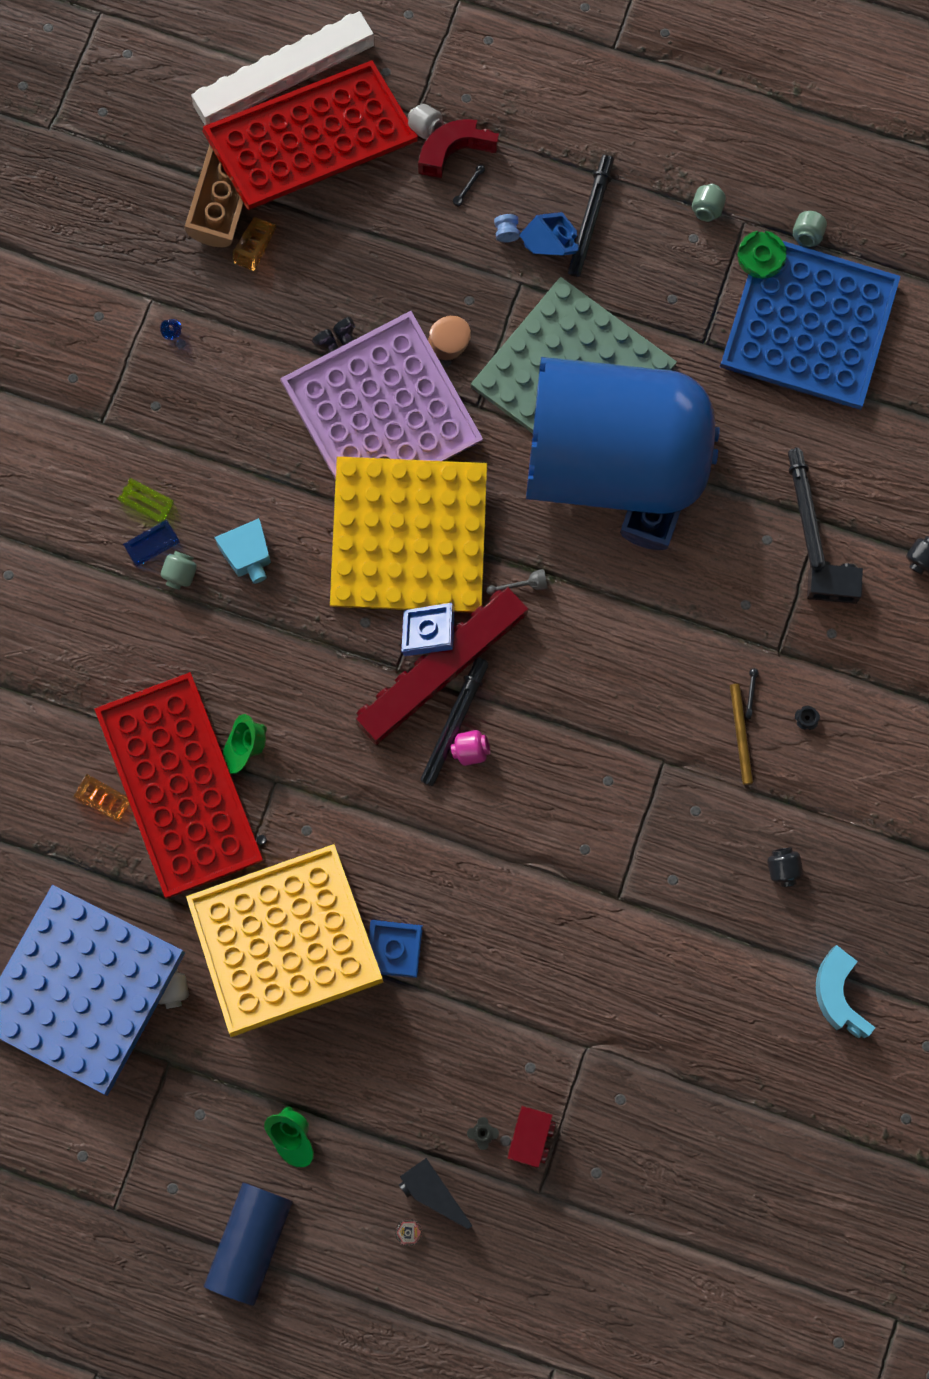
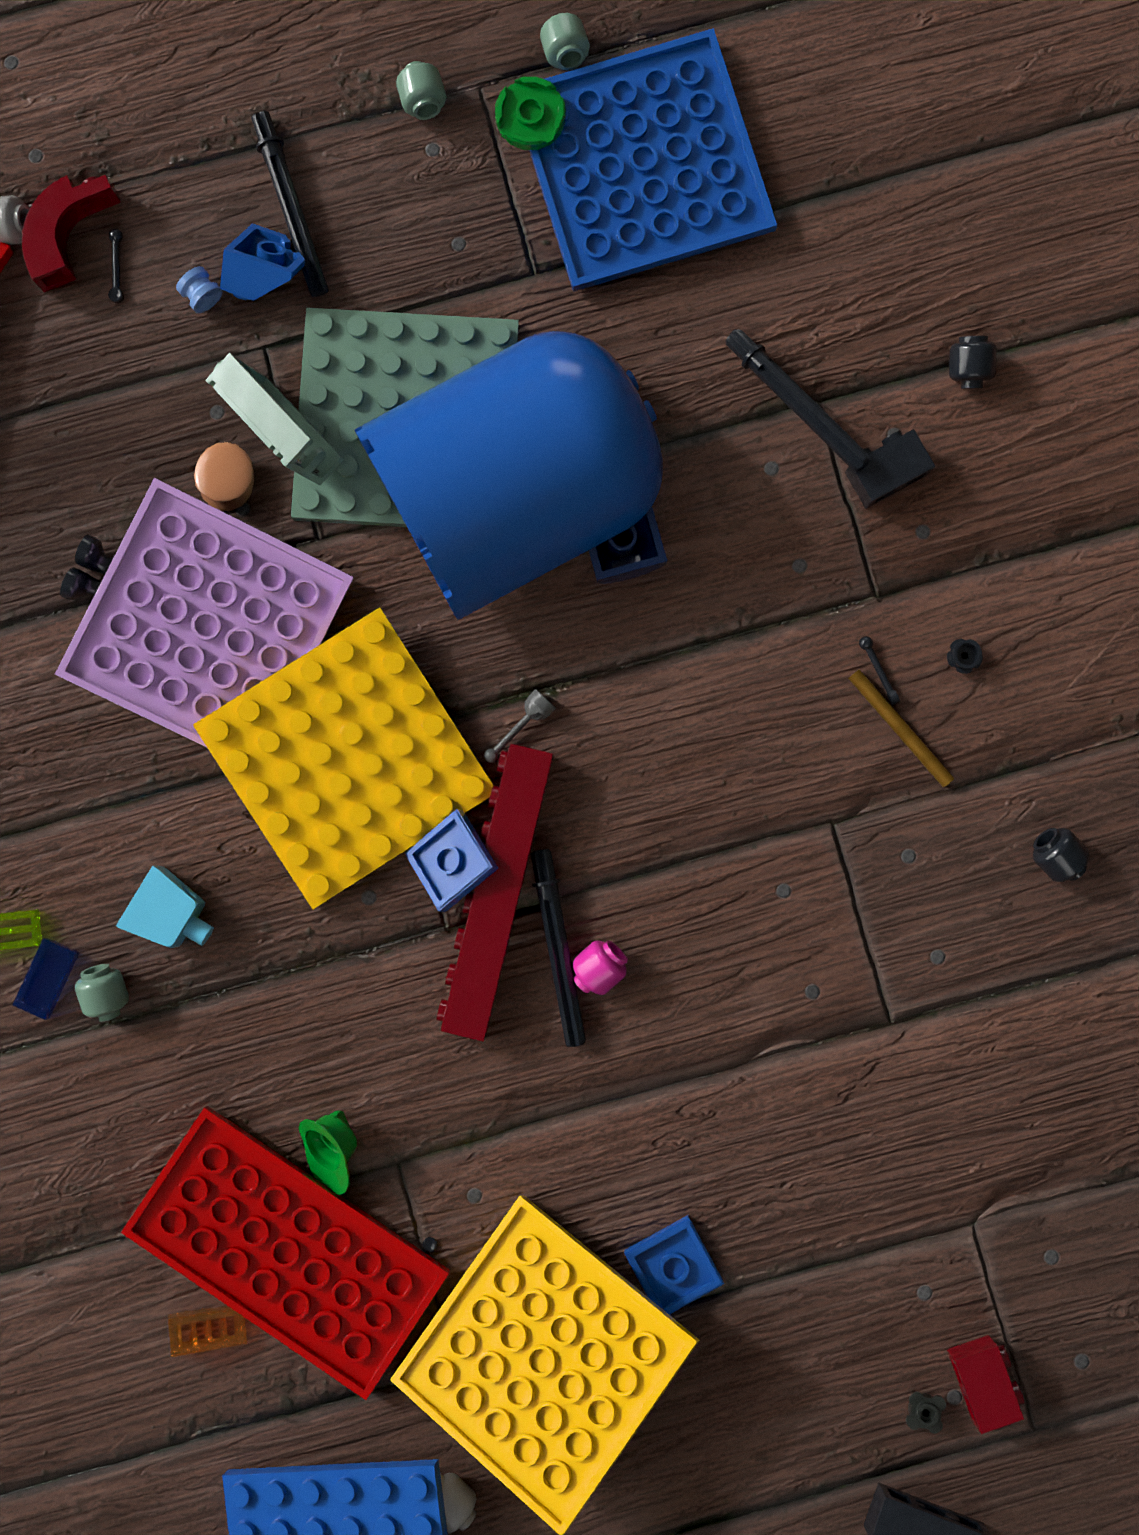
camera: 25 degrees left, 10 degrees up
(500, 323) = (274, 419): none -> door

